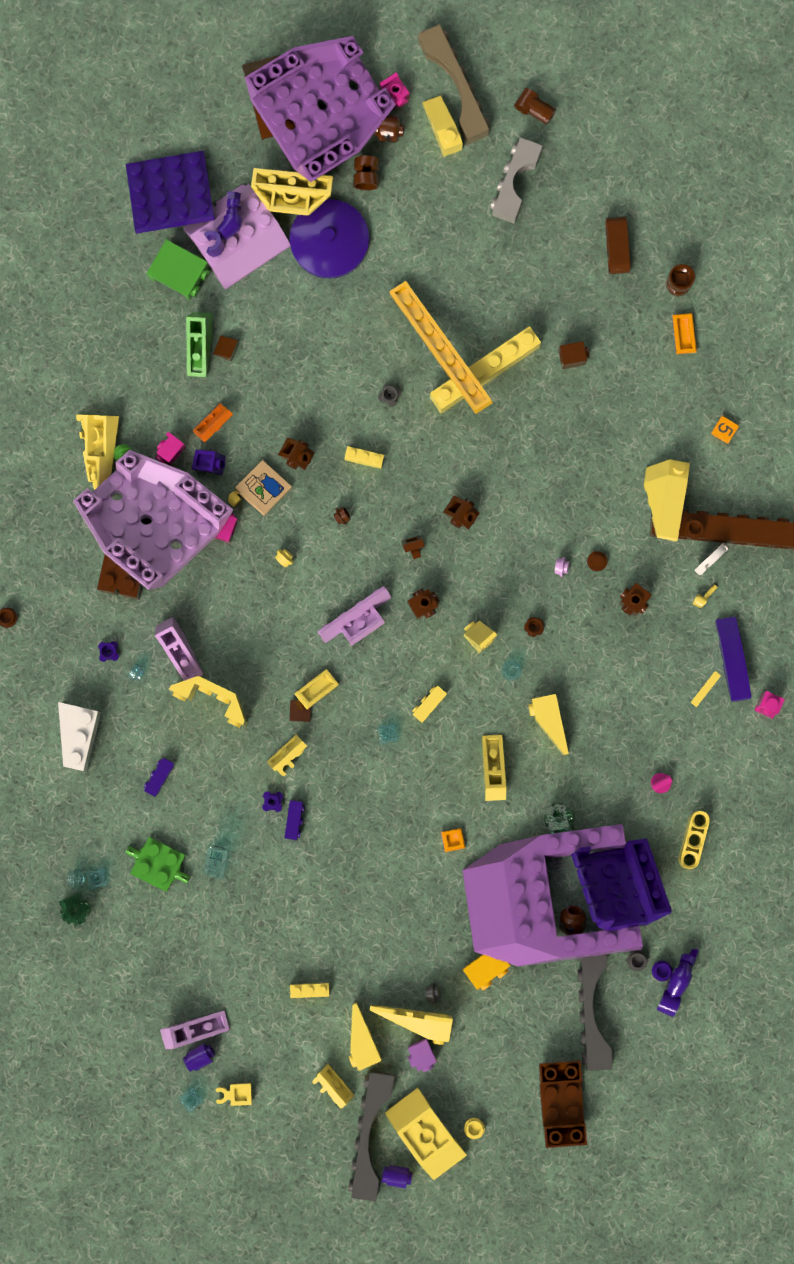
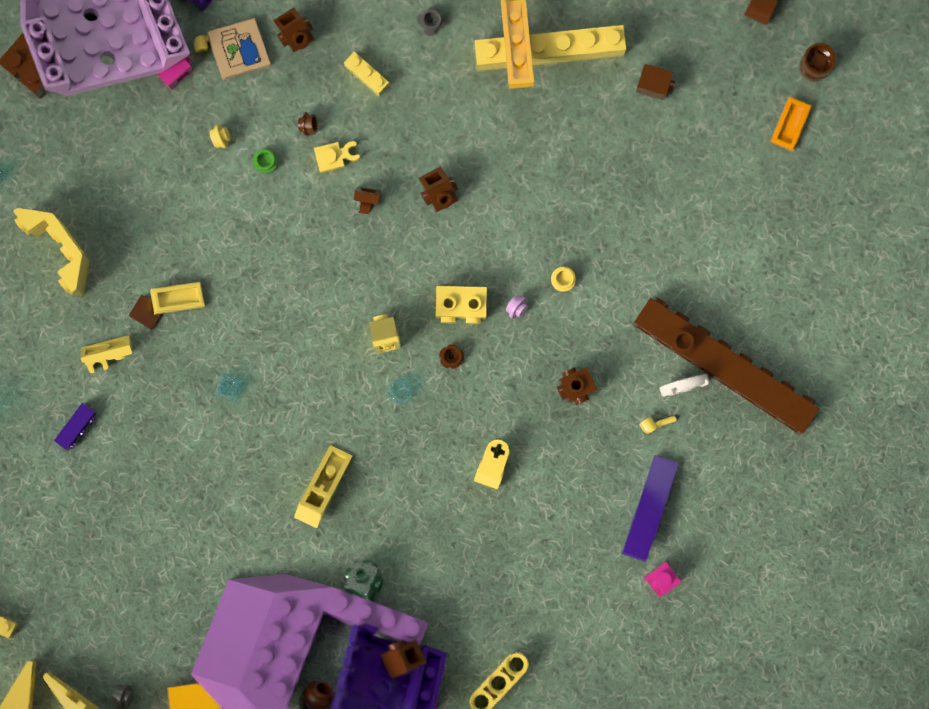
camera: 25 degrees right, 0 degrees up
(178, 649) = (51, 173): lavender slope -> none
(272, 796) = (71, 392): dark purple plate -> none
(325, 558) = (265, 161): none -> bright green plate
(358, 620) = (263, 247): lavender bracket -> none
(371, 529) = (331, 156): none -> light yellow plate
(420, 610) = (336, 260): reddish brown brick -> none
(429, 703) = (291, 379): light yellow piece -> none
(453, 839) = (236, 541): light orange tile -> none
(521, 585) = (461, 303): none -> light yellow brick
(548, 716) = (412, 463): light yellow slope -> none
(583, 529) = (563, 279): none -> light yellow plate
(597, 561) = (559, 321): reddish brown plate -> none
(605, 692) = (490, 468): none -> light yellow piece
(619, 858) = (403, 658): none -> reddish brown brick
(661, 782) = (497, 601): dark pink plate -> none
(666, 495) = (673, 286): light yellow wedge -> none
(705, 689) = (602, 525): light yellow piece -> none
(724, 429) = (778, 252): light orange tile -> none

